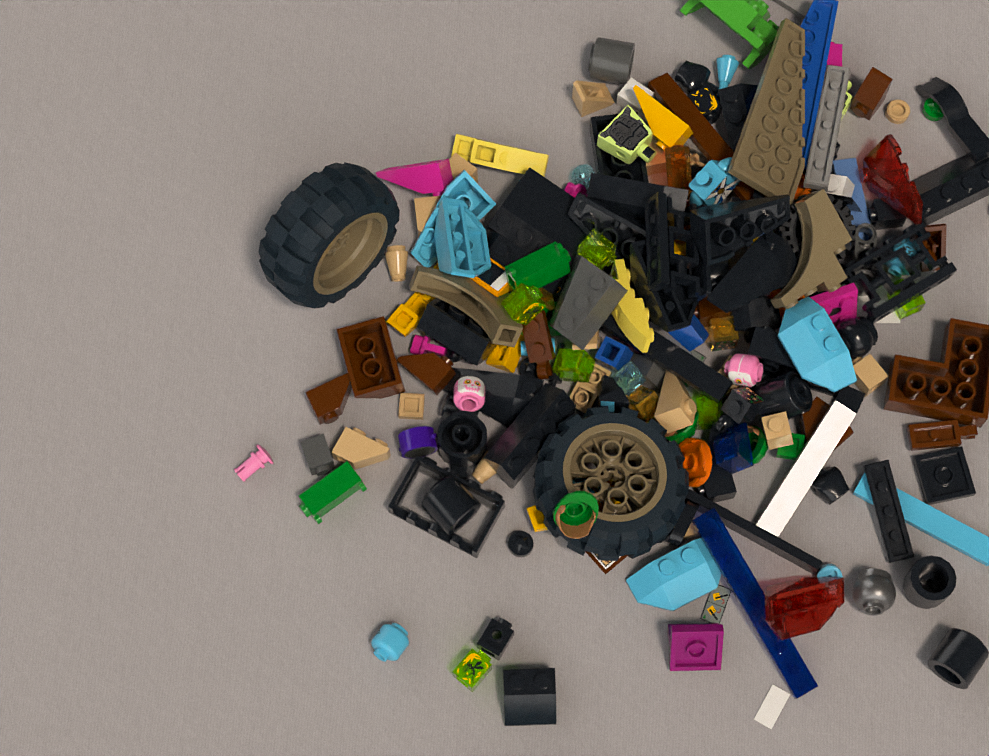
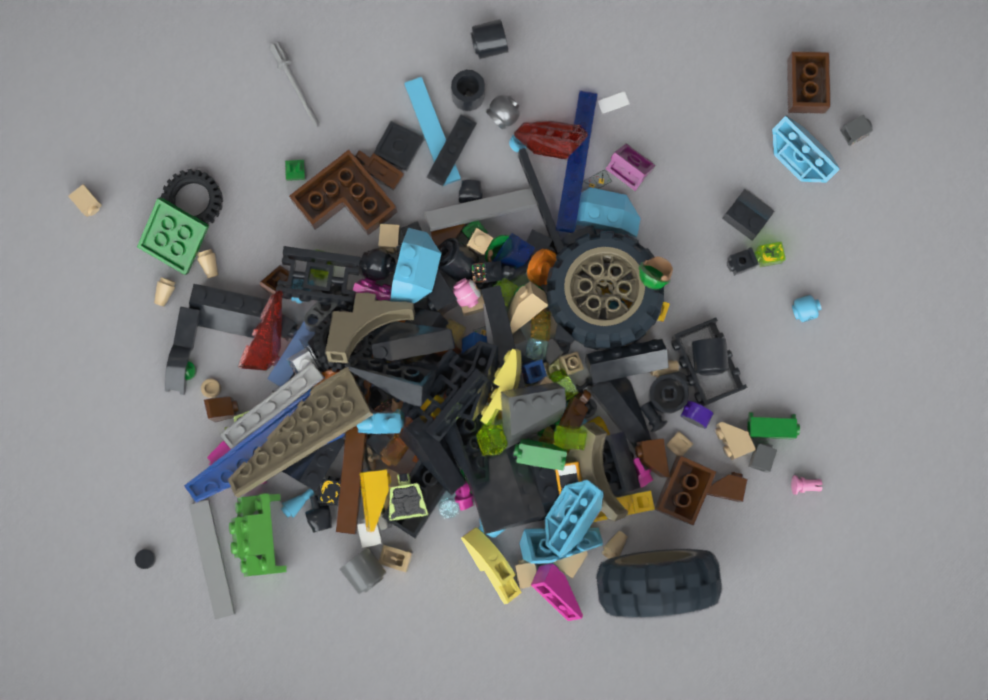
camera: 145 degrees left, 10 degrees up
(469, 394) = (643, 416): bright pink head -> none
(520, 544) = (681, 306): black tile -> none

